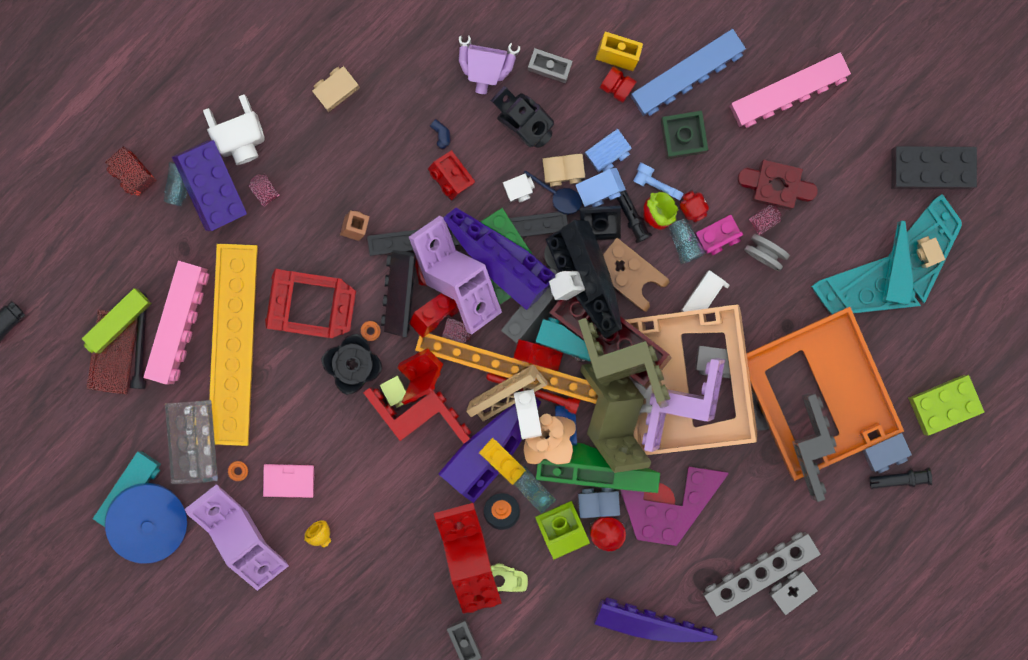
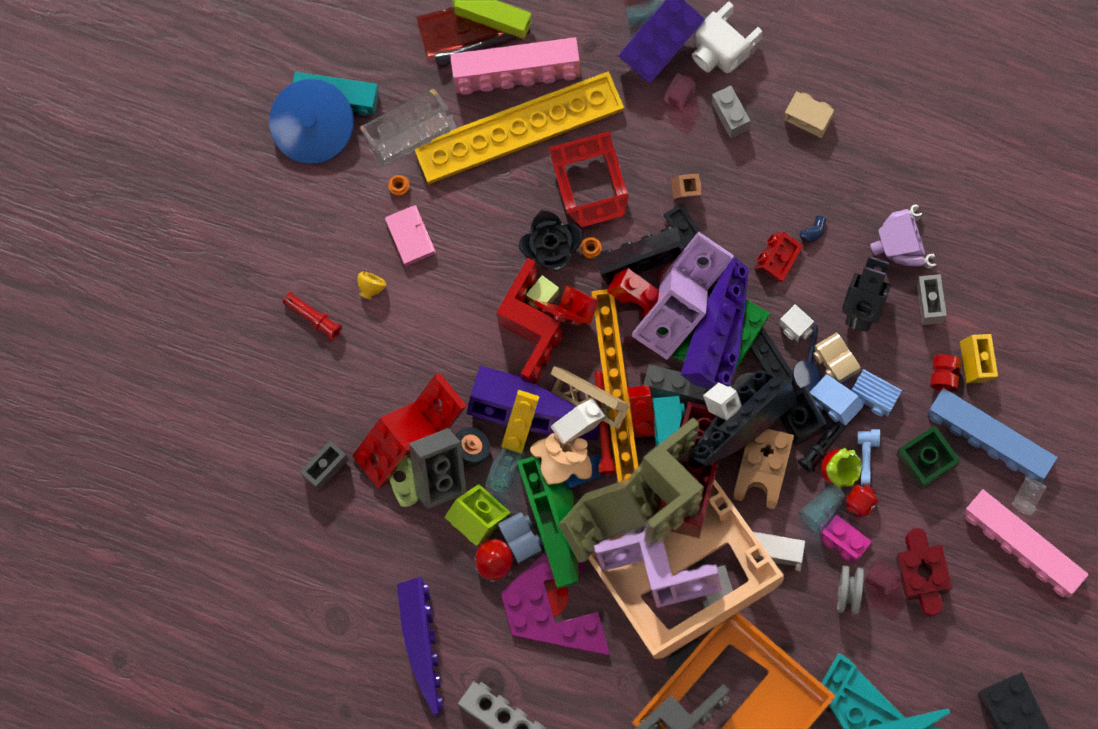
camera: 70 degrees right, 15 degrees down
(236, 537) = (334, 207): lavender bracket -> none
(303, 155) = (730, 112): none -> light grey brick
(331, 591) = (319, 321): none -> red pin
(514, 549) = (437, 468): none -> dark grey brick
(752, 67) = (1028, 496): none -> clear bracket

